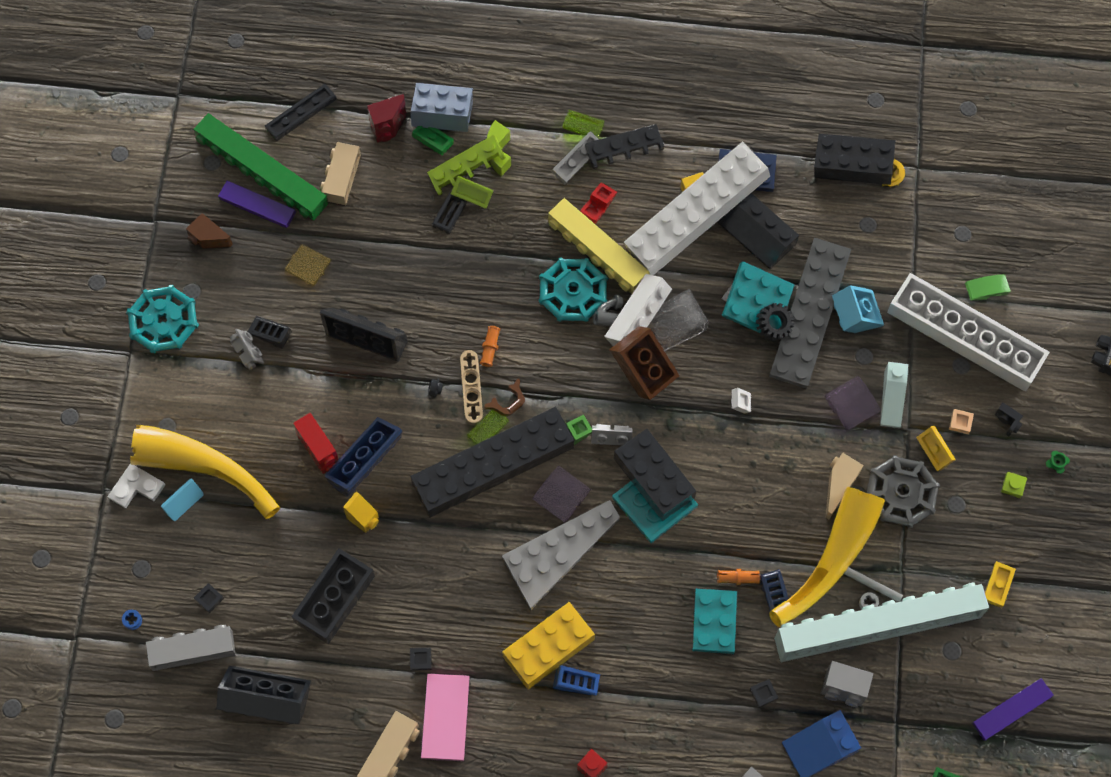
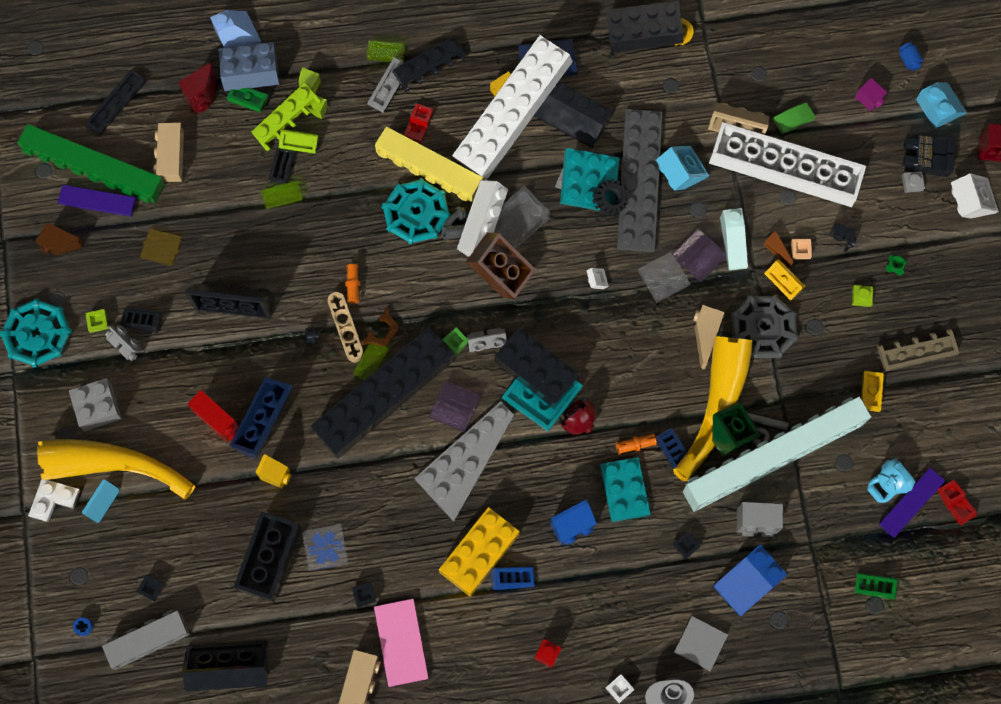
camera: 15 degrees left, 5 degrees up
(202, 403) = (95, 404): none -> light grey brick
(225, 321) = (97, 320): none -> lime plate
(393, 602) = (325, 547): none -> clear tile
(437, 67) = (235, 28): none -> light blue slope
(441, 241) = (281, 195): none -> clear neon green tile
(652, 640) = (573, 523): none -> blue slope
(686, 536) = (579, 417): none -> dark red cylinder
(810, 415) = (663, 277): none -> clear plate
(842, 586) = (733, 429): none -> dark green slope
(928, 272) = (738, 117): none -> tan slope
(935, 412) = (776, 246): none -> dark orange piece
(998, 680) = (893, 480): none -> medium azure piece
(1058, 556) = (918, 352): none -> dark tan hinge
(1060, 721) = (956, 502): none -> red slope
(1075, 282) = (871, 95): none -> magenta brick
(1097, 381) = (913, 182): none -> light grey plate

